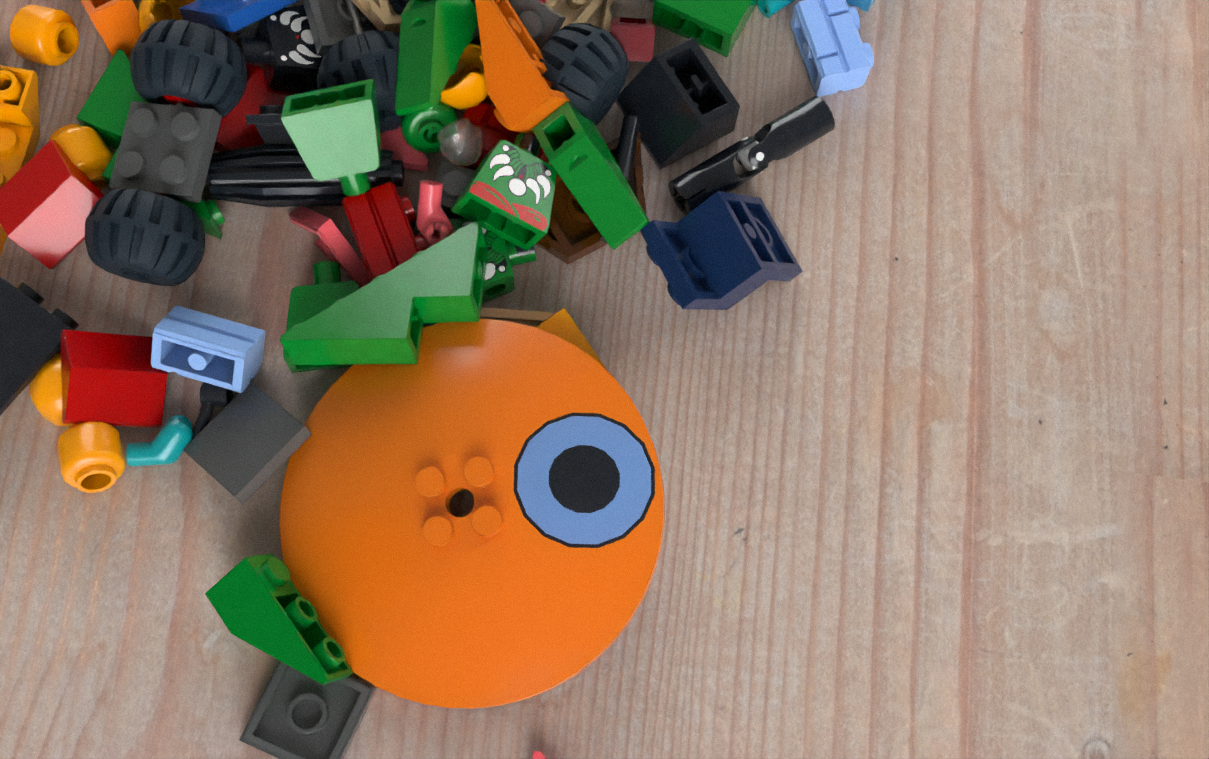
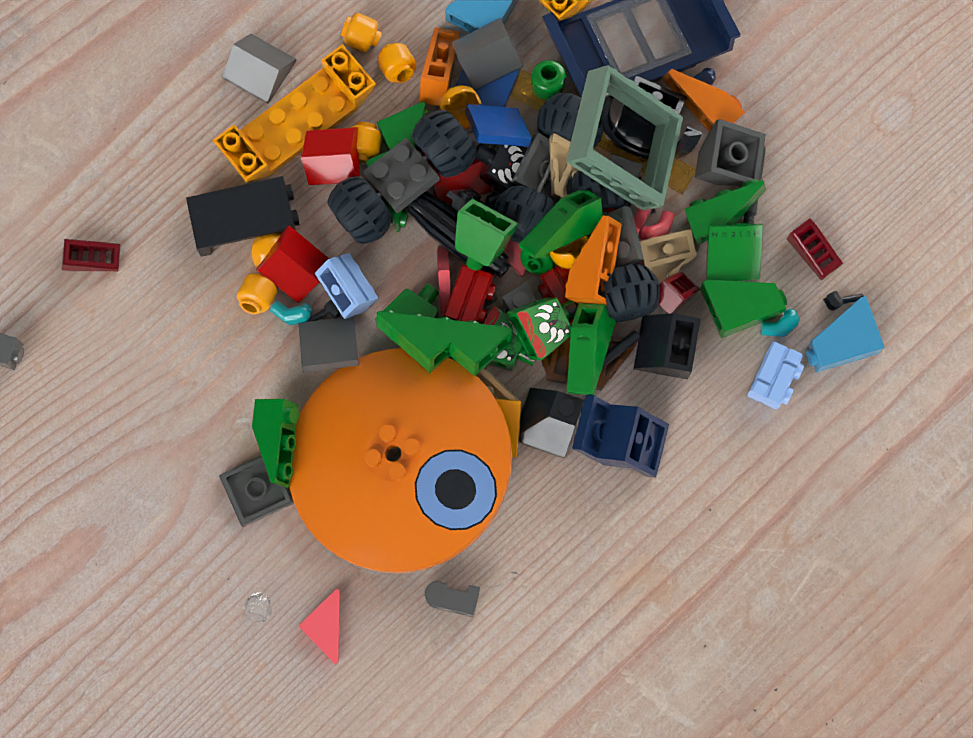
camera: 45 degrees right, 5 degrees up
(430, 216) = (495, 308): coral arm -> none
(461, 142) = (541, 281): clear plate -> none
(618, 304) = (549, 420): none -> black slope
(684, 638) = (452, 600): none -> dark grey leg
(772, 142) = (697, 401): black piece -> none

